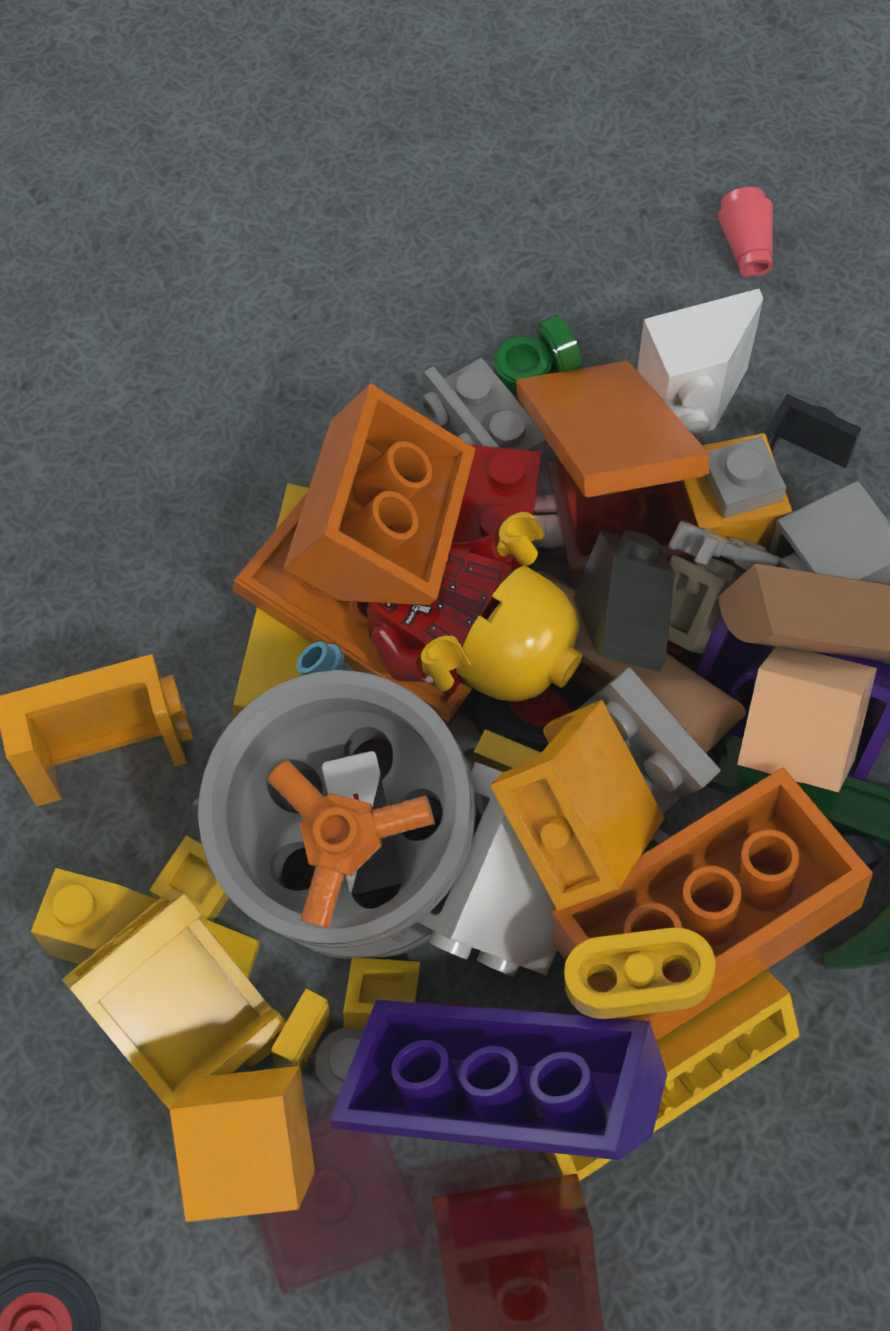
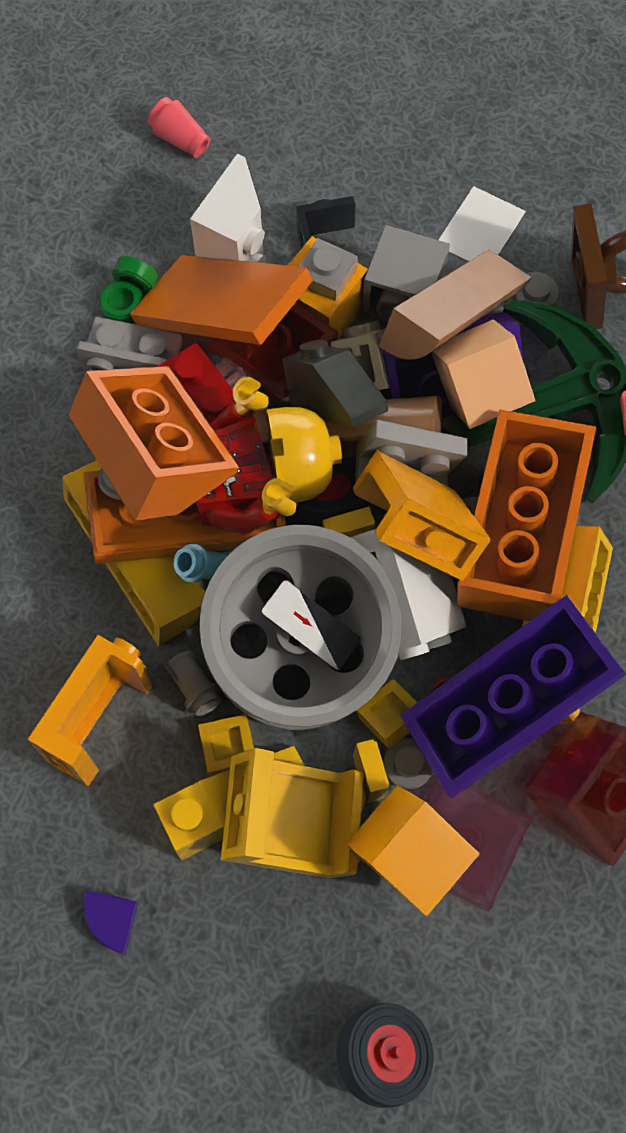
camera: 45 degrees left, 5 degrees up
(340, 834) = (327, 635): orange piece -> none
(637, 968) = (537, 576): yellow plate -> none
(706, 543) = (354, 317): light grey piece -> none

